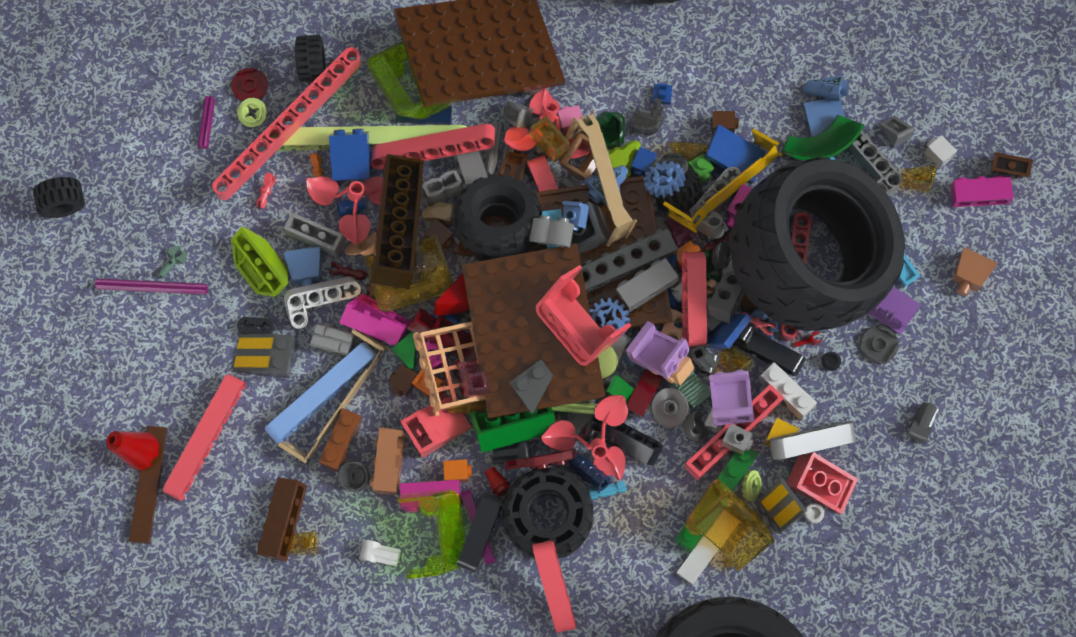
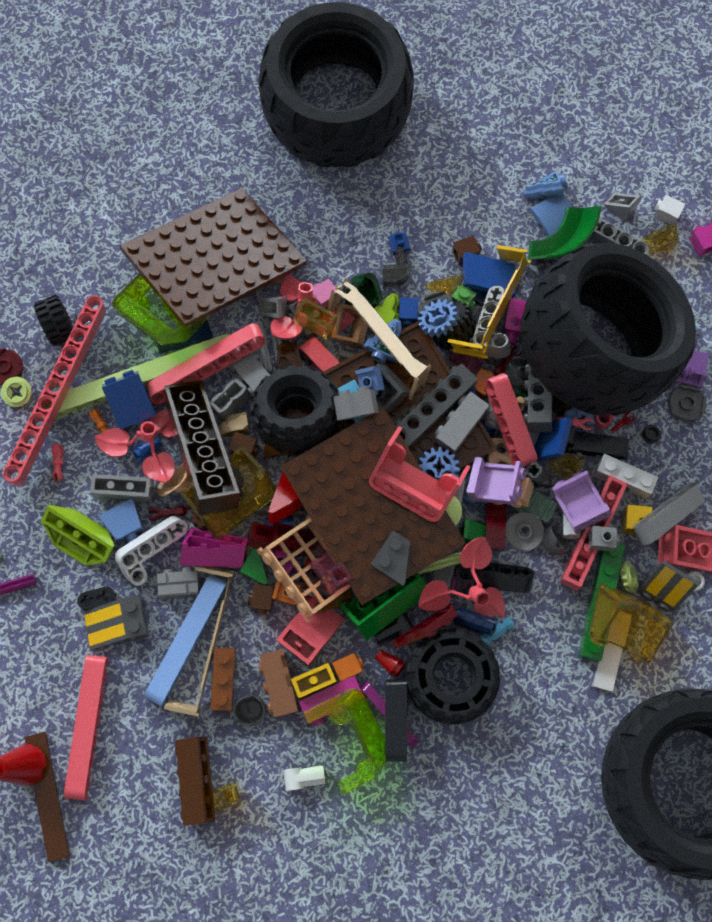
camera: 25 degrees left, 0 degrees up
(420, 470) = (313, 681): none -> yellow brick
(554, 586) = (488, 745): coral beam -> none

